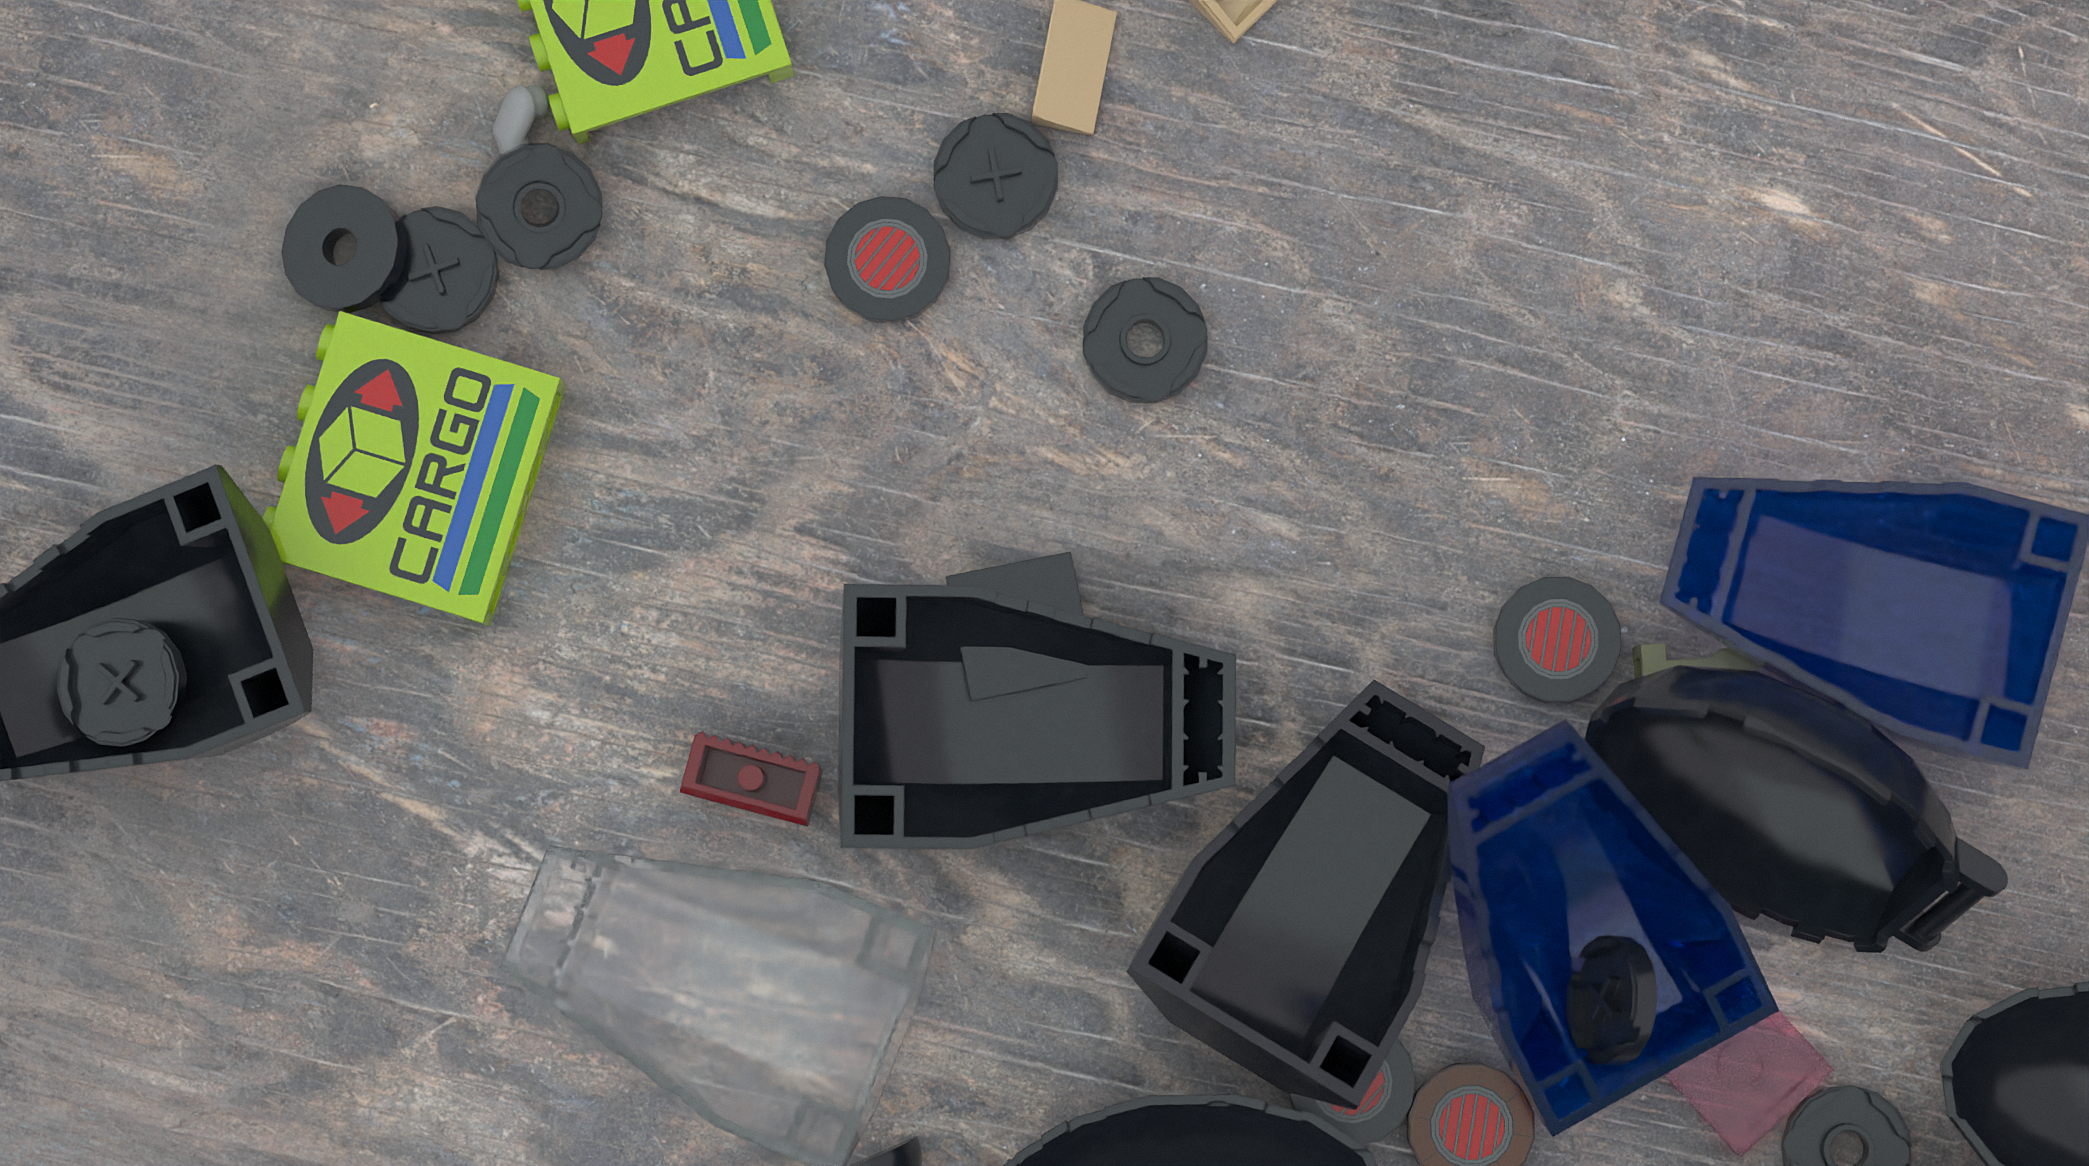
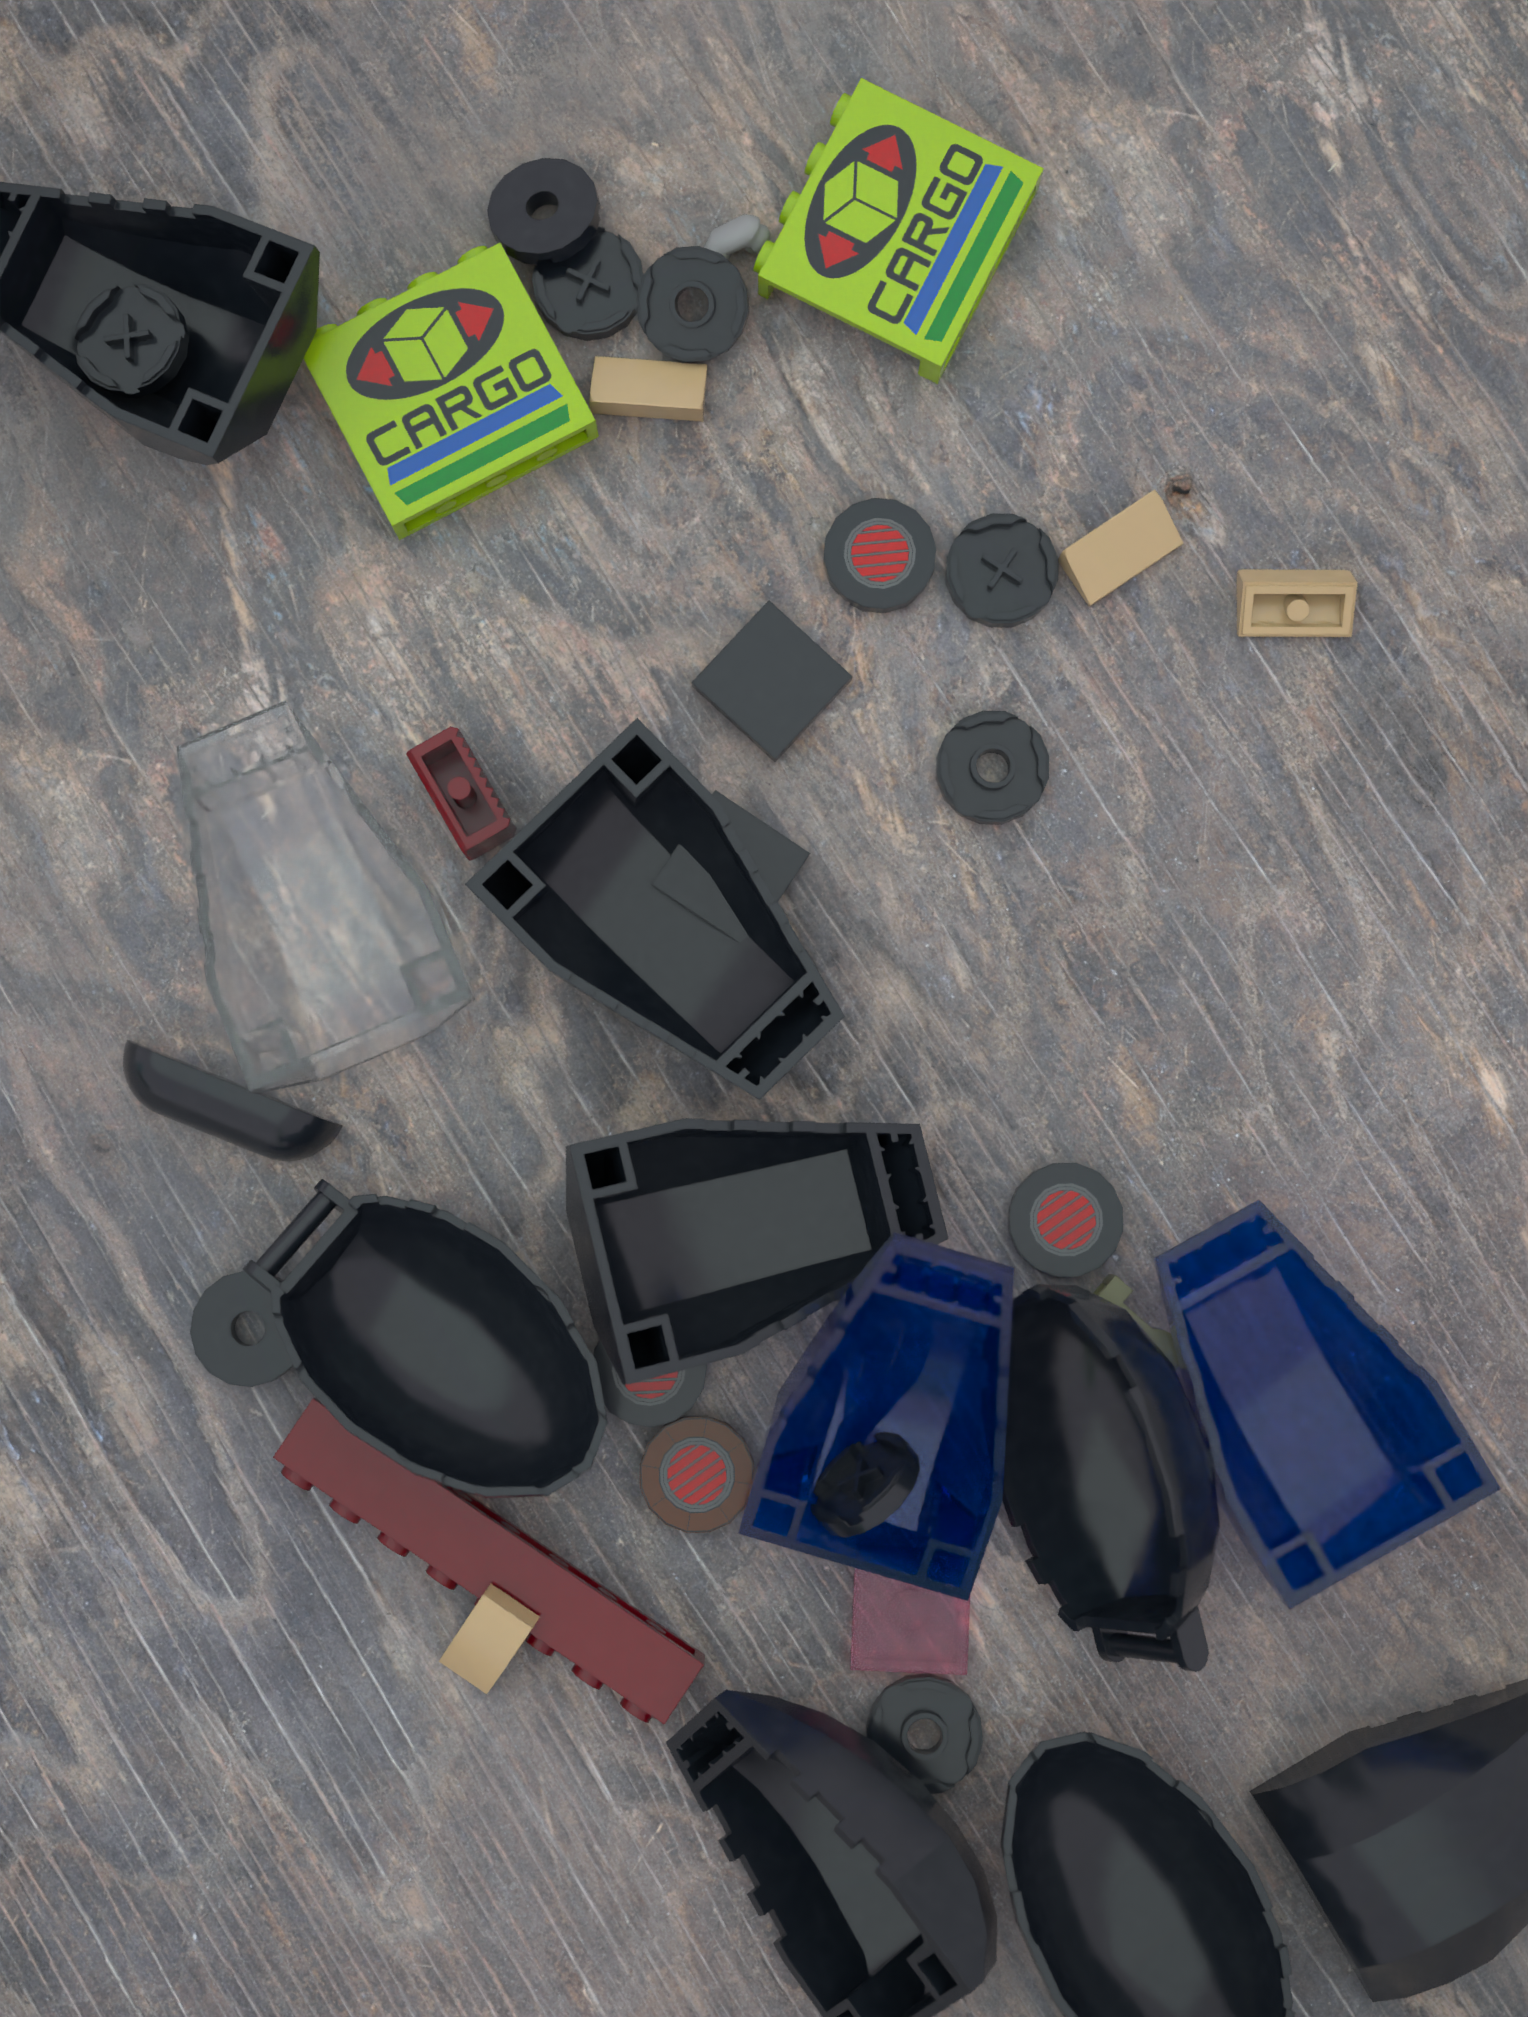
camera: 50 degrees right, 0 degrees up
(569, 307) = (648, 388): none -> tan slope
(902, 444) = (771, 681): none -> black tile

